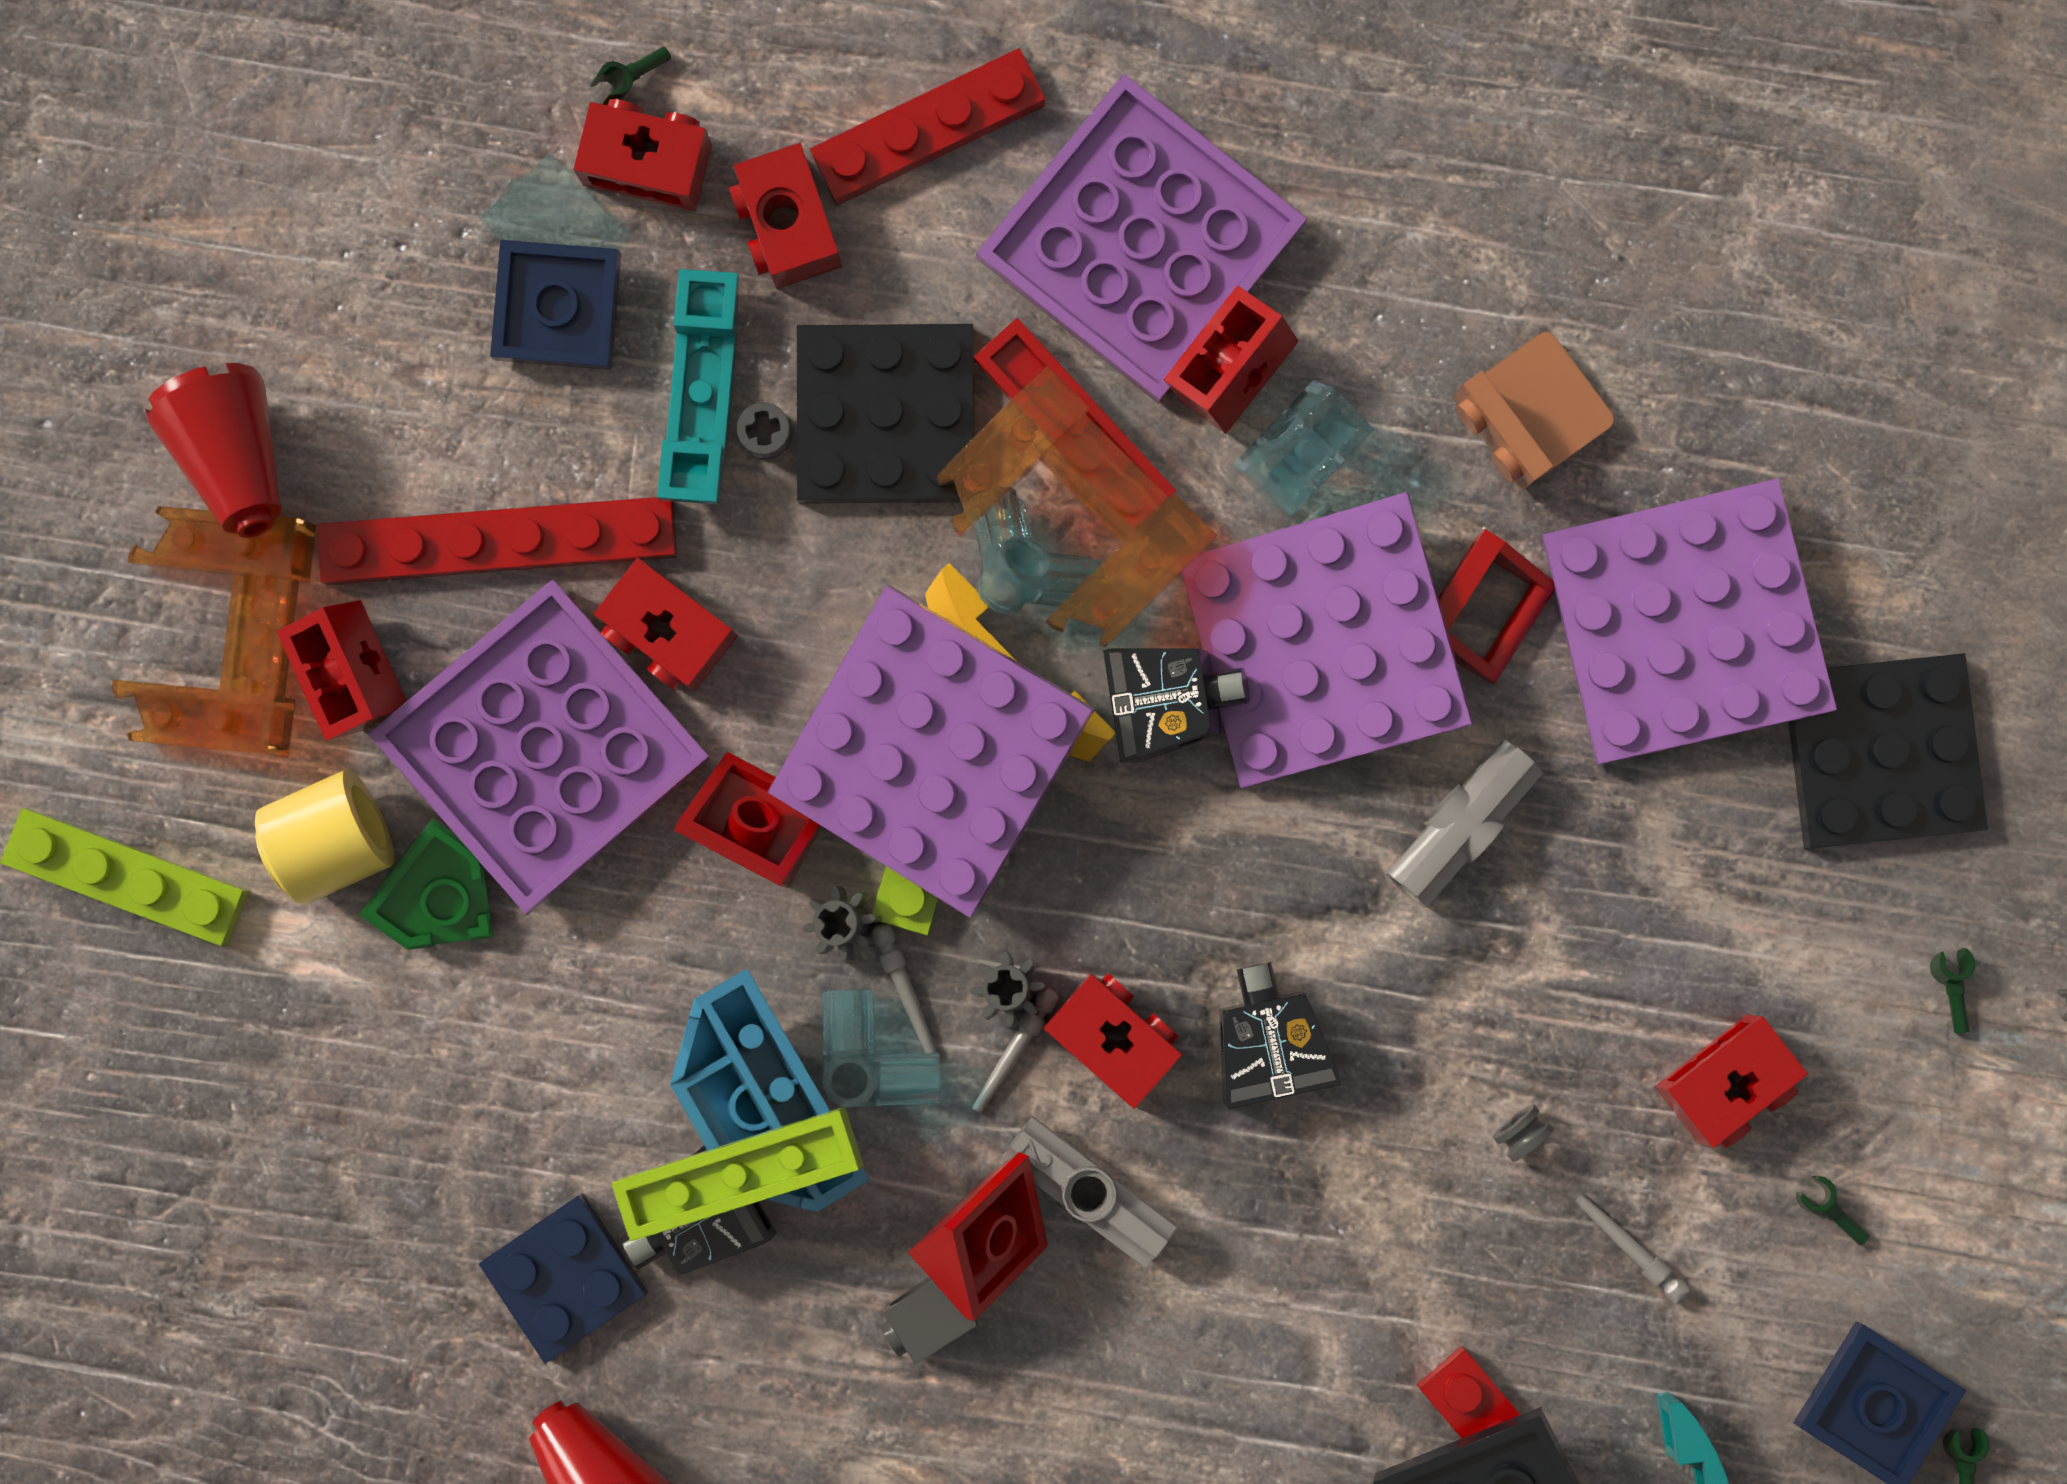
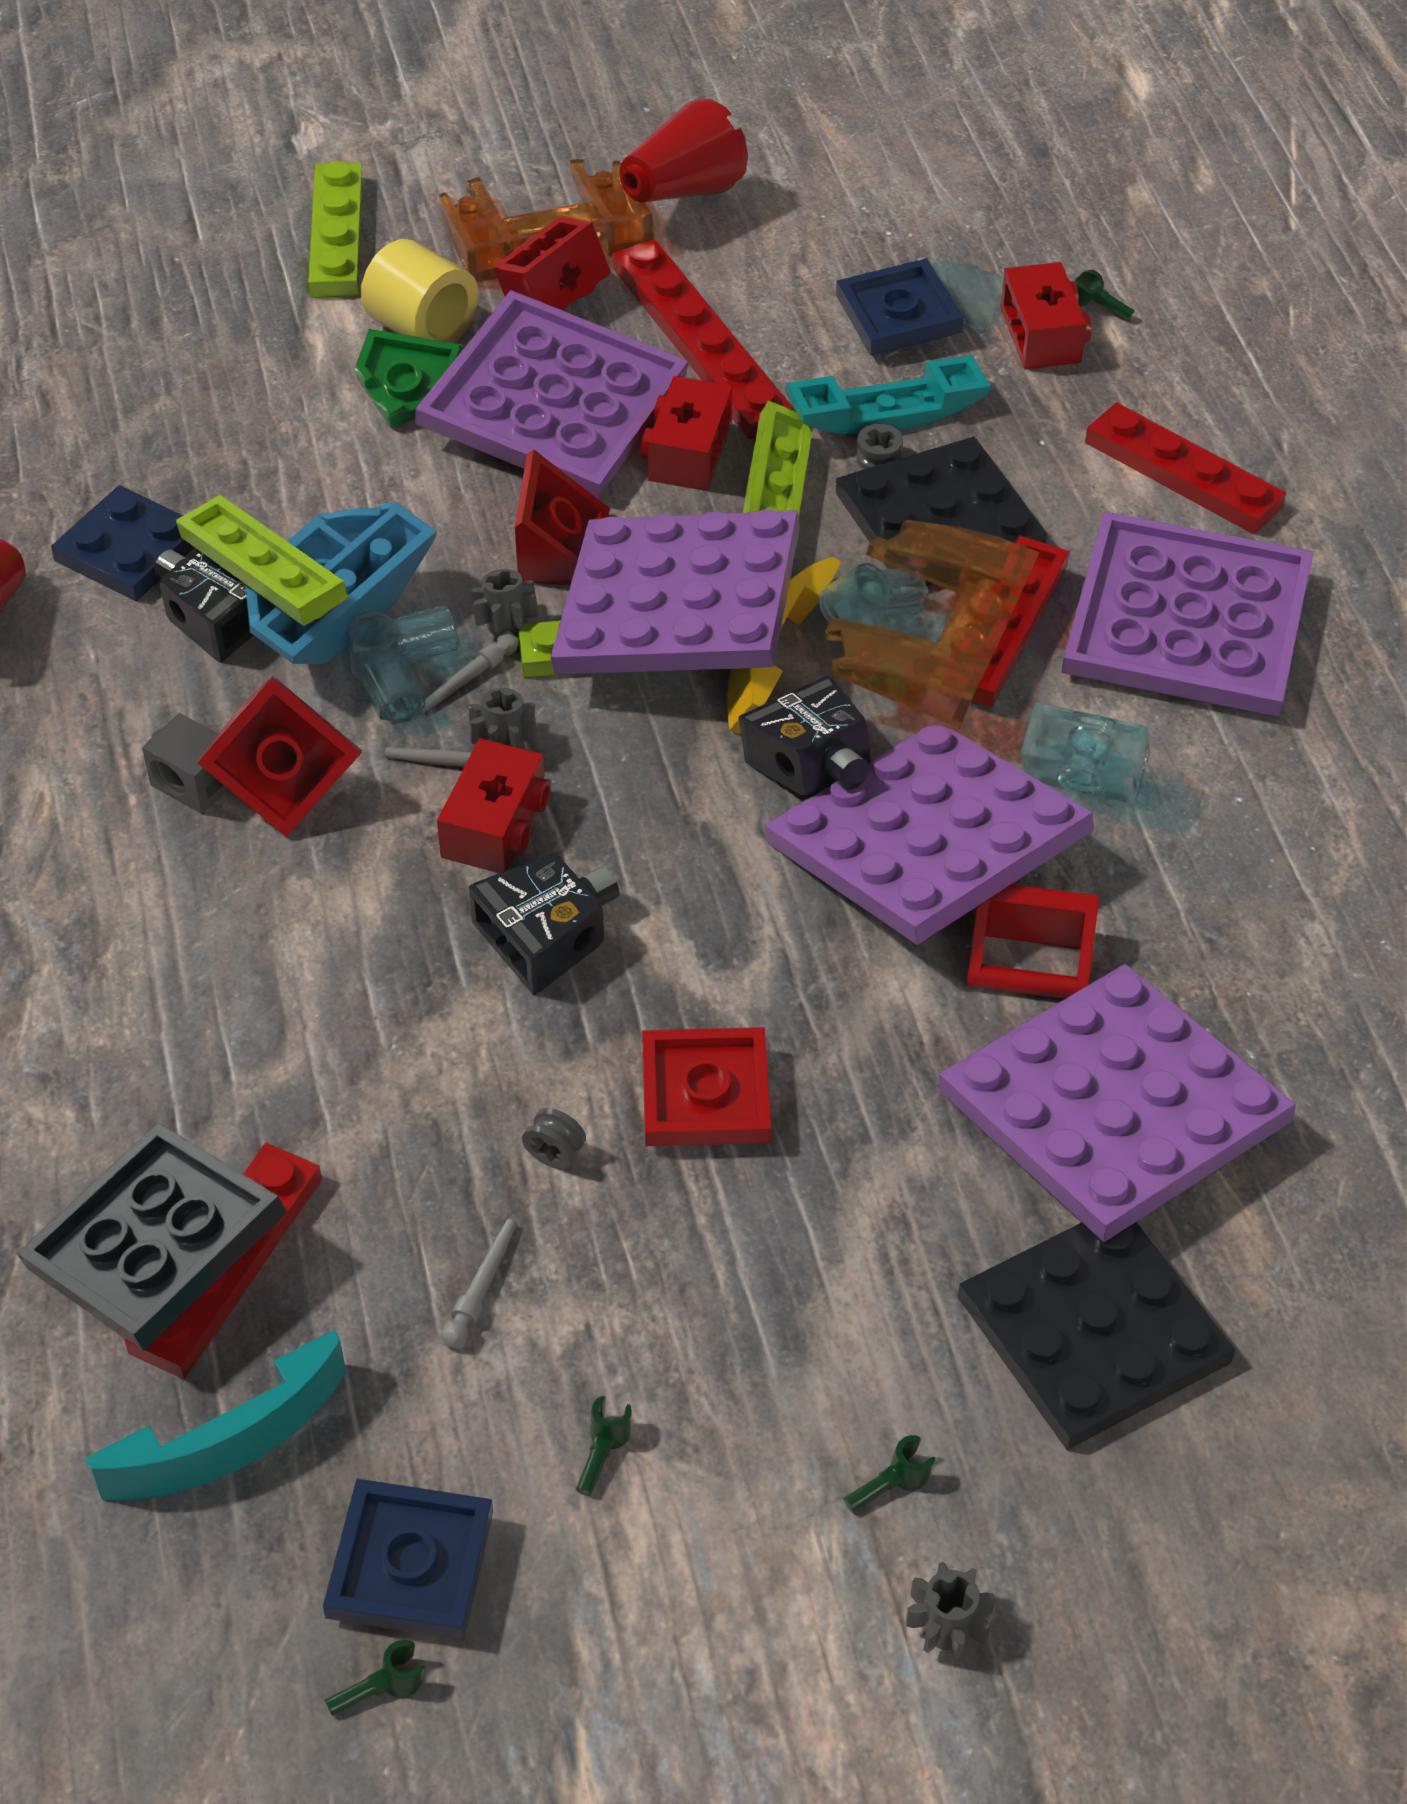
camera: 65 degrees right, 35 degrees down
(776, 566) = (778, 461): none -> lime plate
(778, 182) = (1054, 402): red brick -> none
(1121, 1214) = (347, 833): light grey piece -> none
(1231, 359) = (1151, 671): red brick -> none
(1464, 823) = (824, 993): light grey piece -> none
(1520, 974) = (706, 1086): none -> red plate
(1532, 410) = (1225, 915): nougat bracket -> none
(1699, 1085) = (689, 1292): red brick -> none

